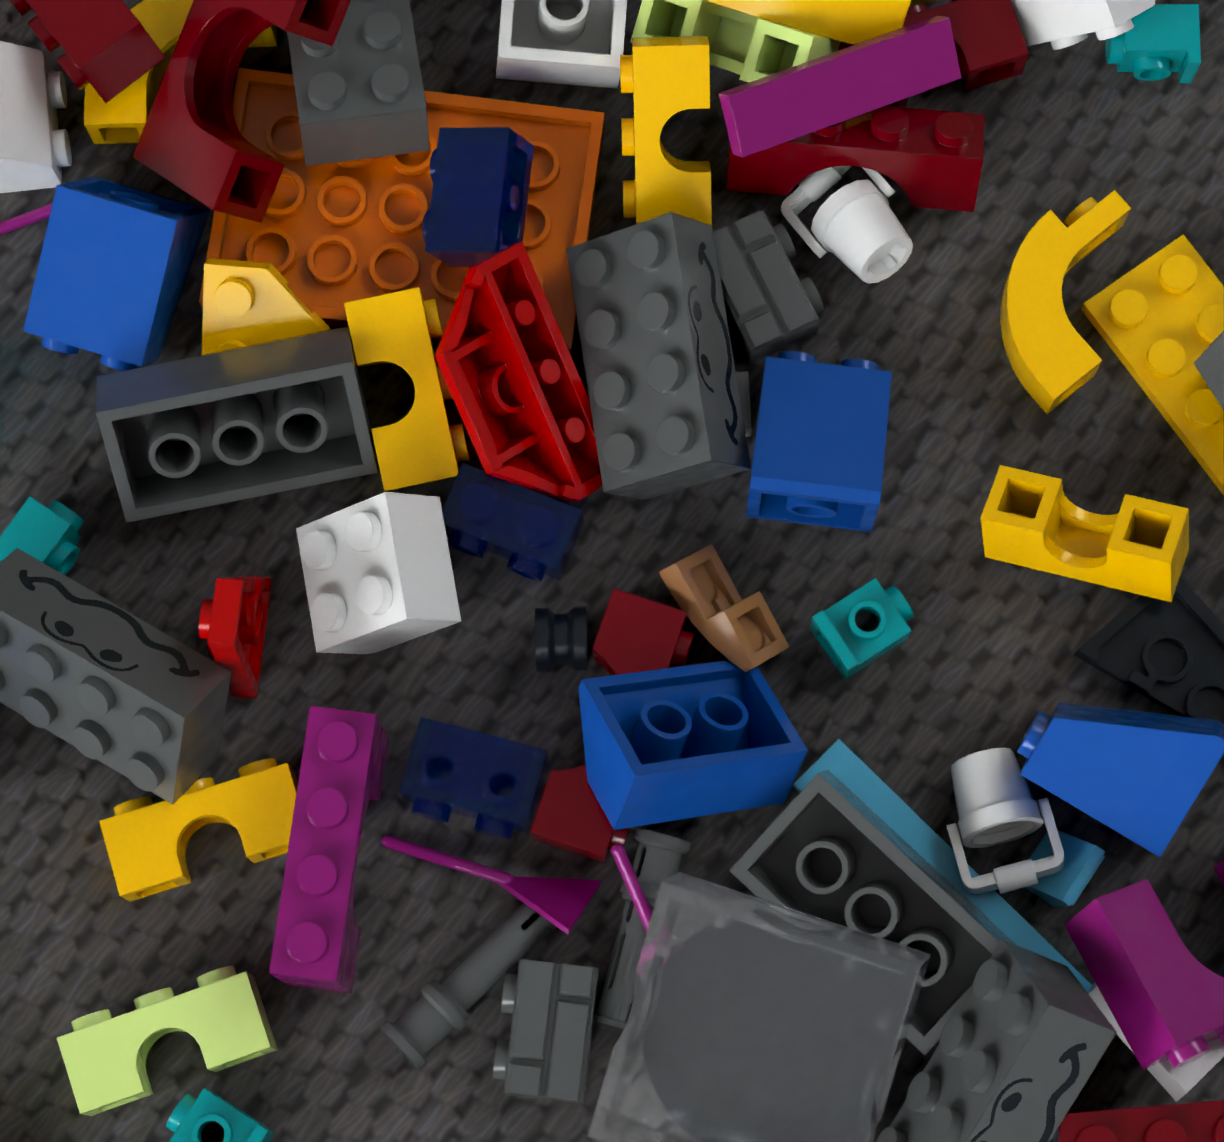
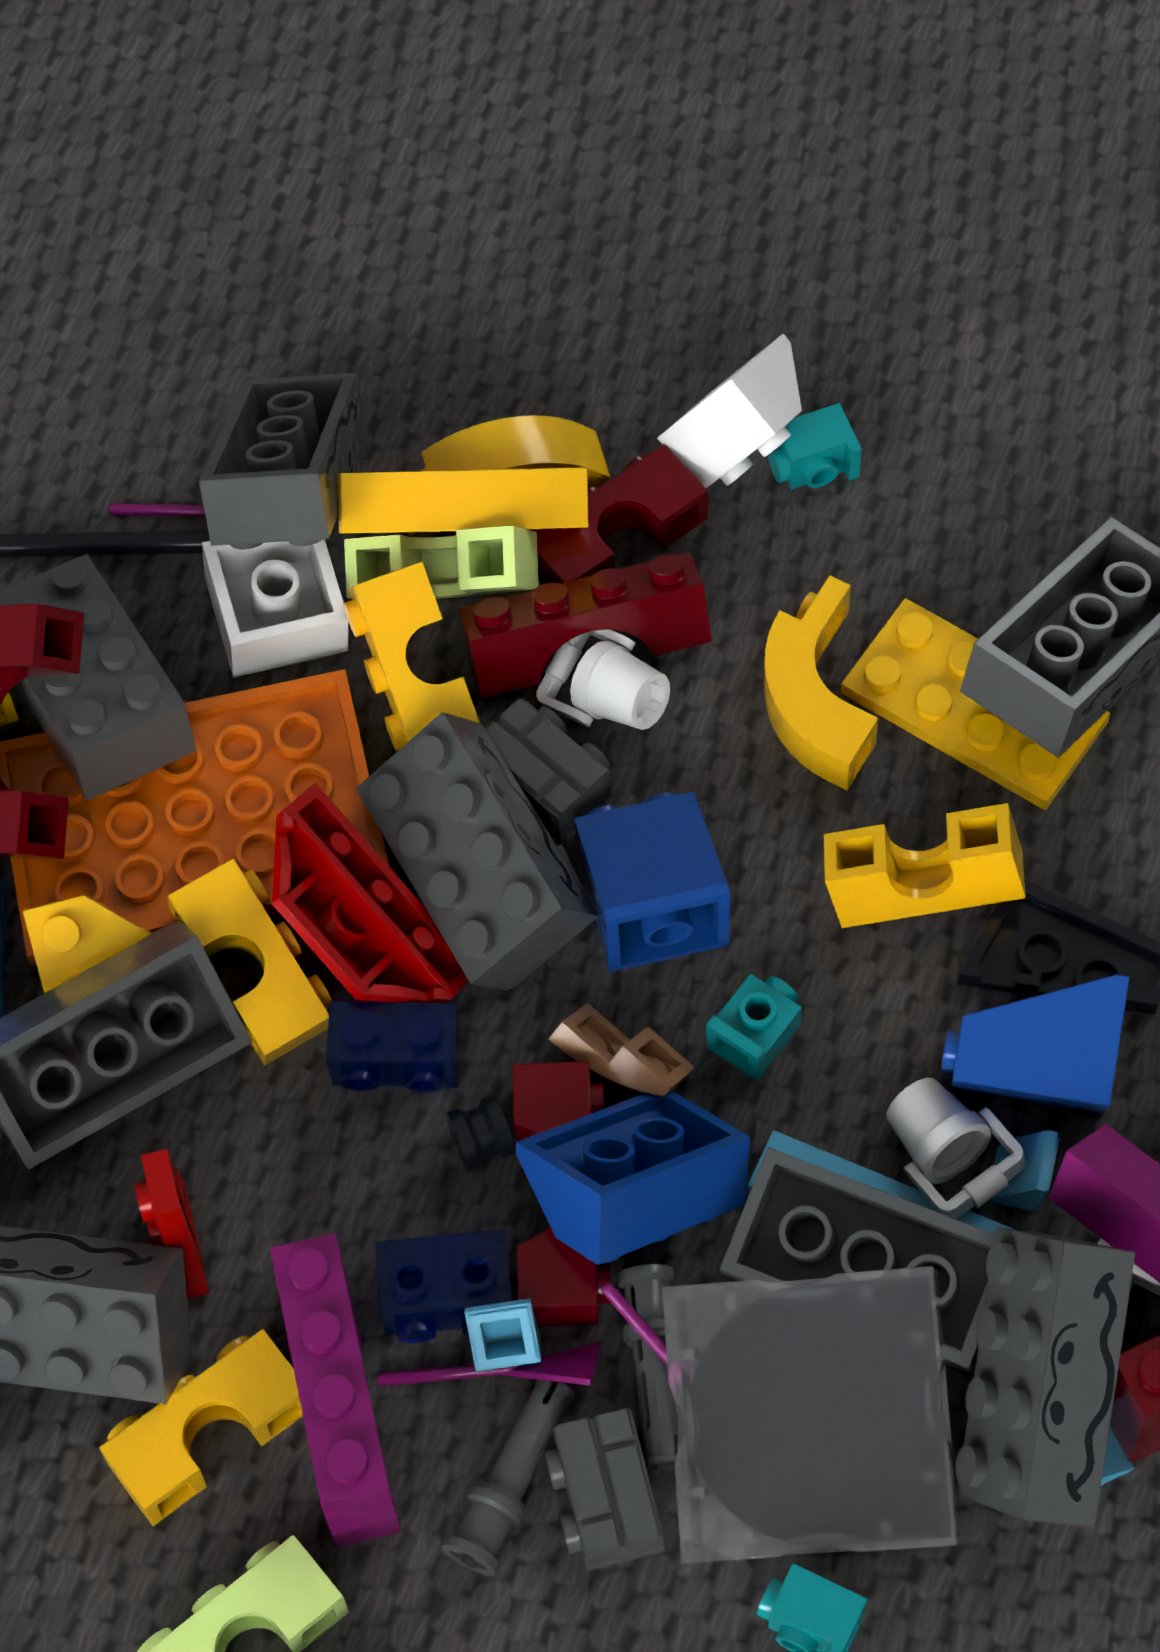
camera: 20 degrees left, 15 degrees down
(378, 573) = (287, 1128): white brick -> none
(477, 193) = (255, 764): clear blue brick -> none
(508, 852) = (503, 1334): none -> medium azure slope
(840, 86) = (551, 562): magenta tile -> none

